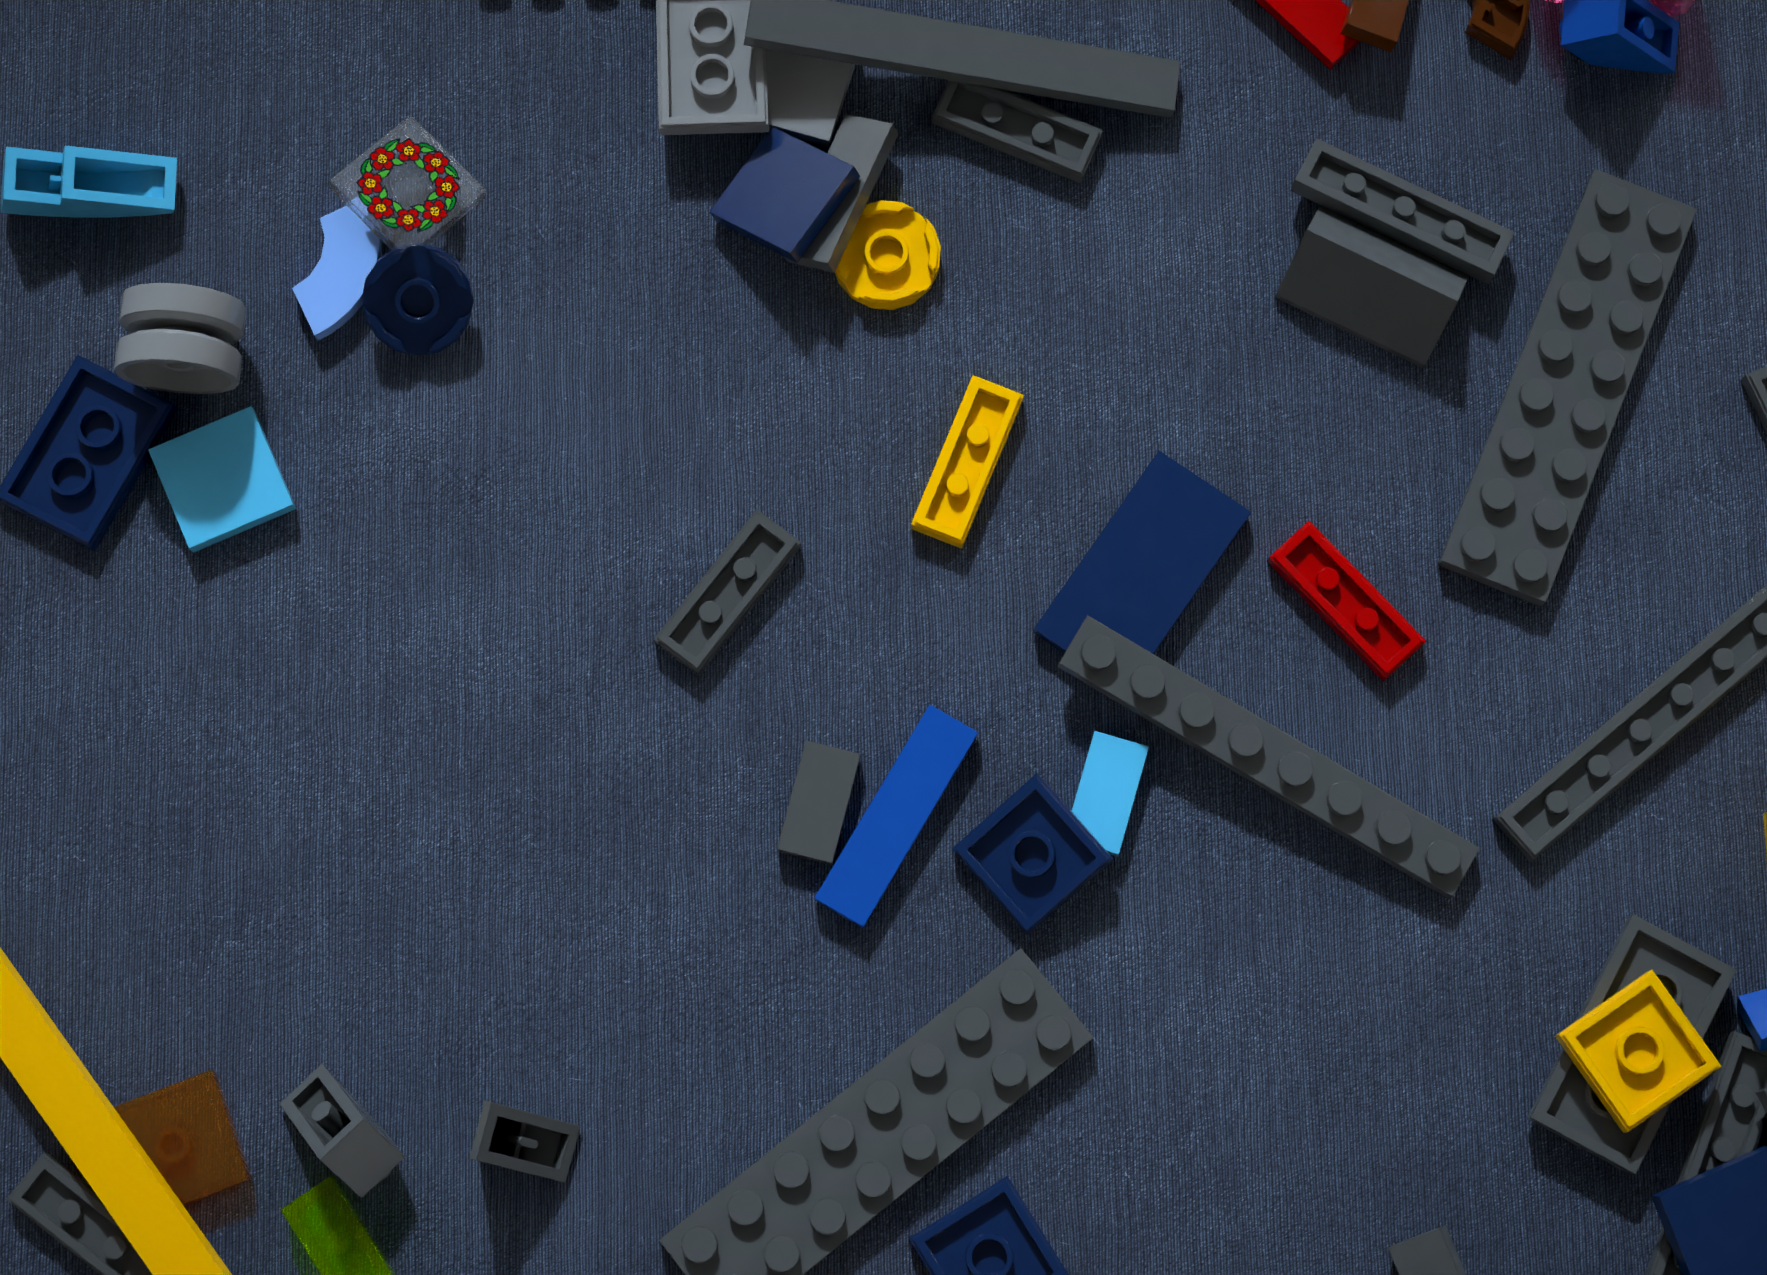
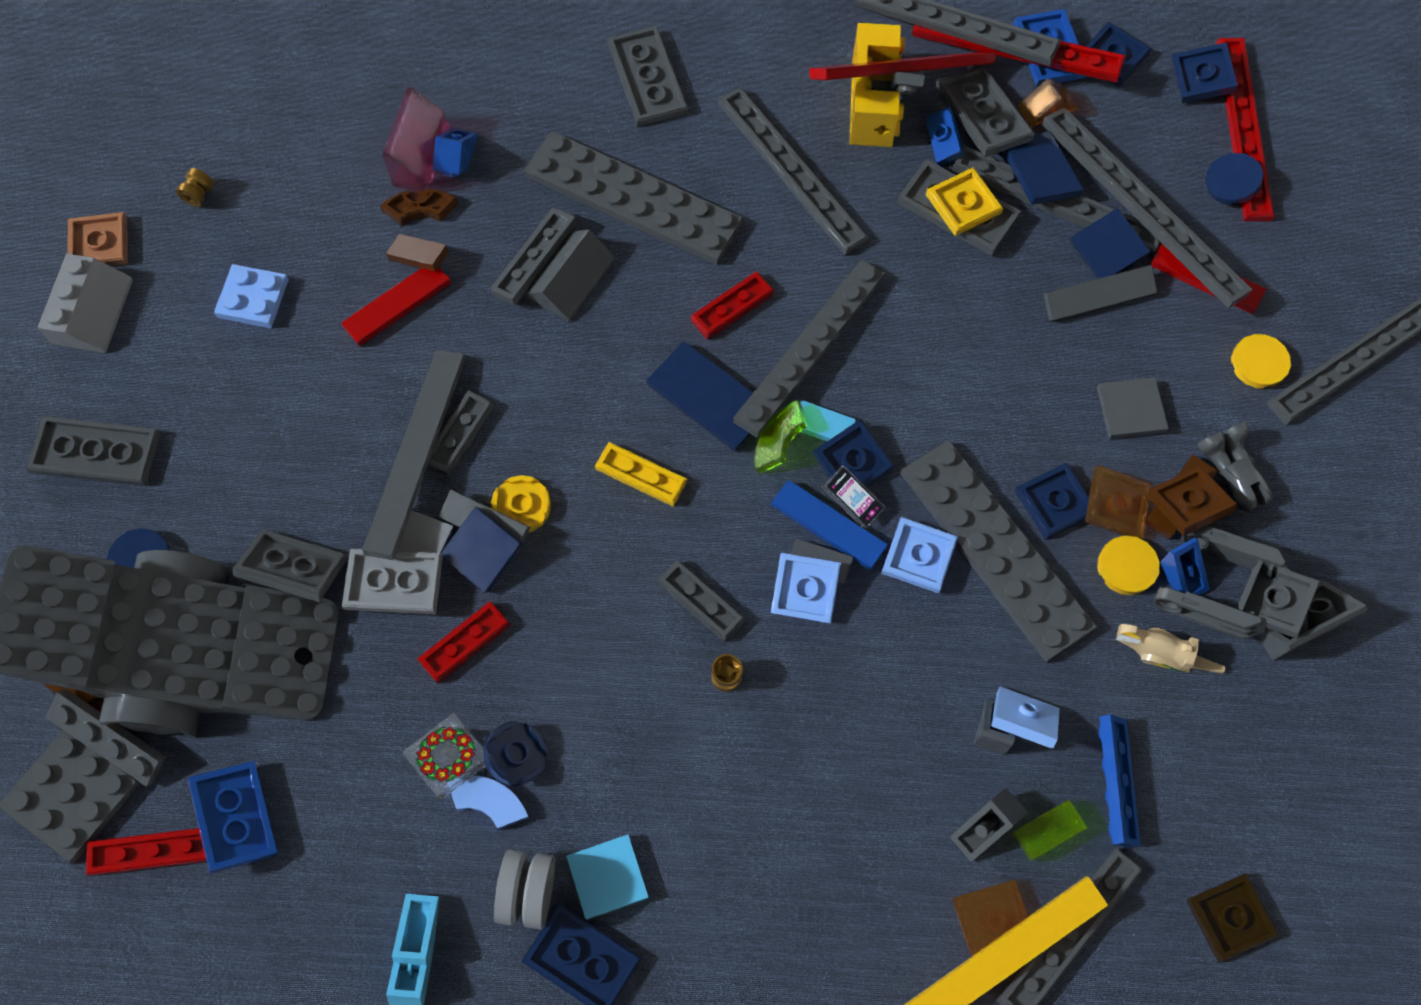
camera: 85 degrees left, 10 degrees down
(536, 1191) = (1026, 717): none -> light blue plate
(584, 635) = (726, 666): none -> pearl gold wheel
(618, 191) = (463, 642): none -> red tile
(762, 777) = (805, 587): none -> light blue plate
(847, 989) = (919, 555): none -> light blue plate
(950, 855) = (853, 497): none -> tile
(1064, 705) = (777, 436): none -> clear neon green tile

